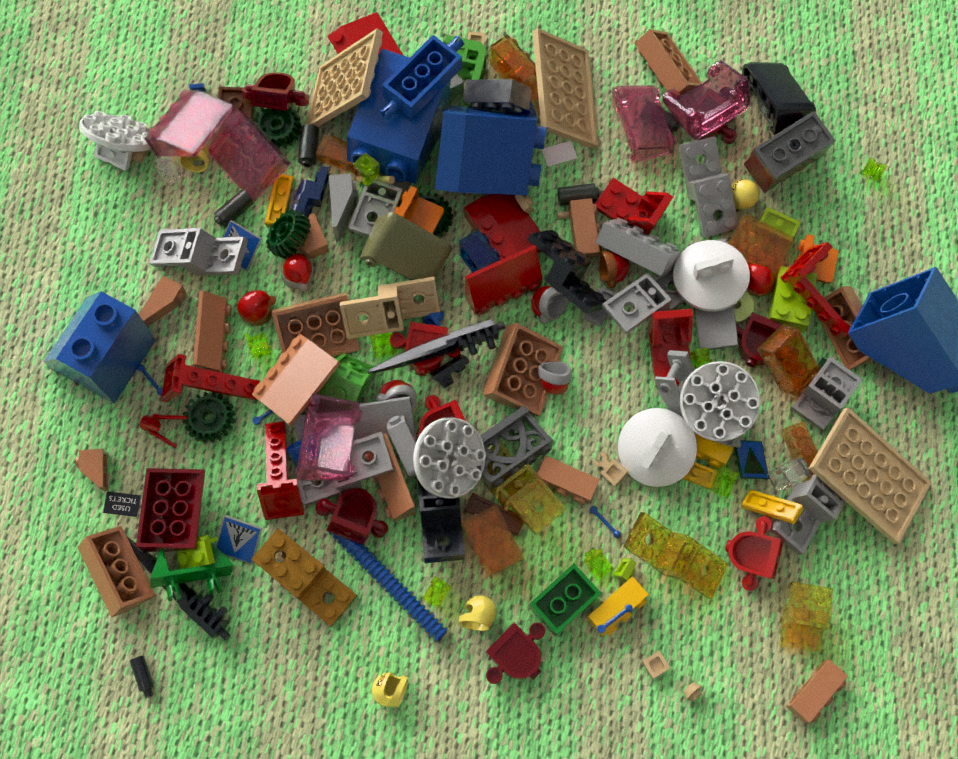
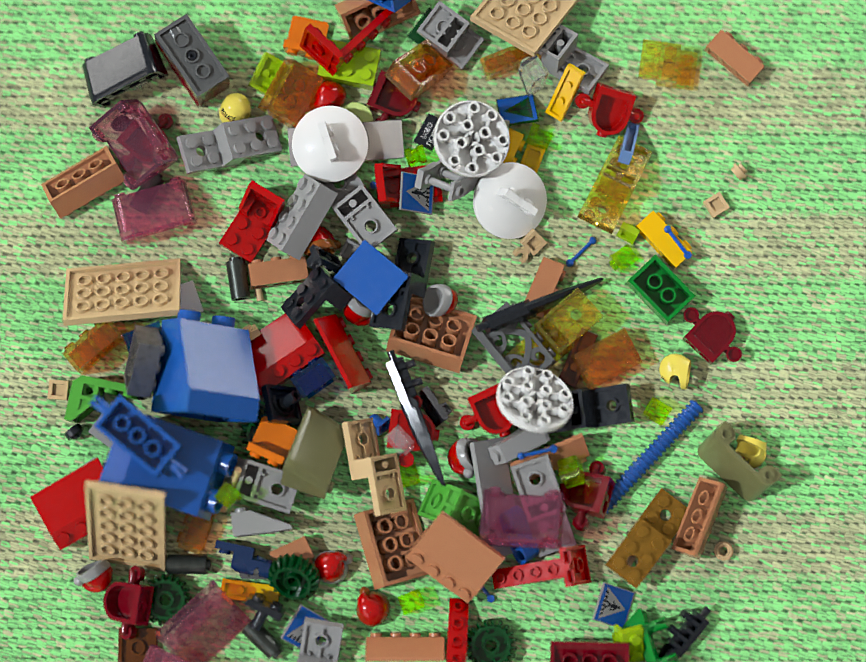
camera: 85 degrees left, 10 degrees up
(259, 205) = (264, 608): none -> black plate
(281, 658) = (728, 546): none -> tan plate
(302, 67) = (95, 576): none -> piece
(321, 631) = (699, 517): none -> nougat slope
(353, 685) = (732, 467): none -> olive windscreen
(376, 497) = (571, 471): none -> clear neon green panel
(398, 476) = (553, 448): none -> blue hinge
(414, 331) = (400, 441): none -> clear brick
(454, 223) = (282, 404): none -> black plate
(544, 459) = (529, 309): none -> black piece
(574, 346) = (413, 287): none -> black bracket
(577, 304) = (370, 277): none -> blue piece
(596, 265) = (322, 257): none -> black hinge
(656, 351) = (415, 199): none -> piece
(720, 571) = (628, 143): none -> medium blue piece

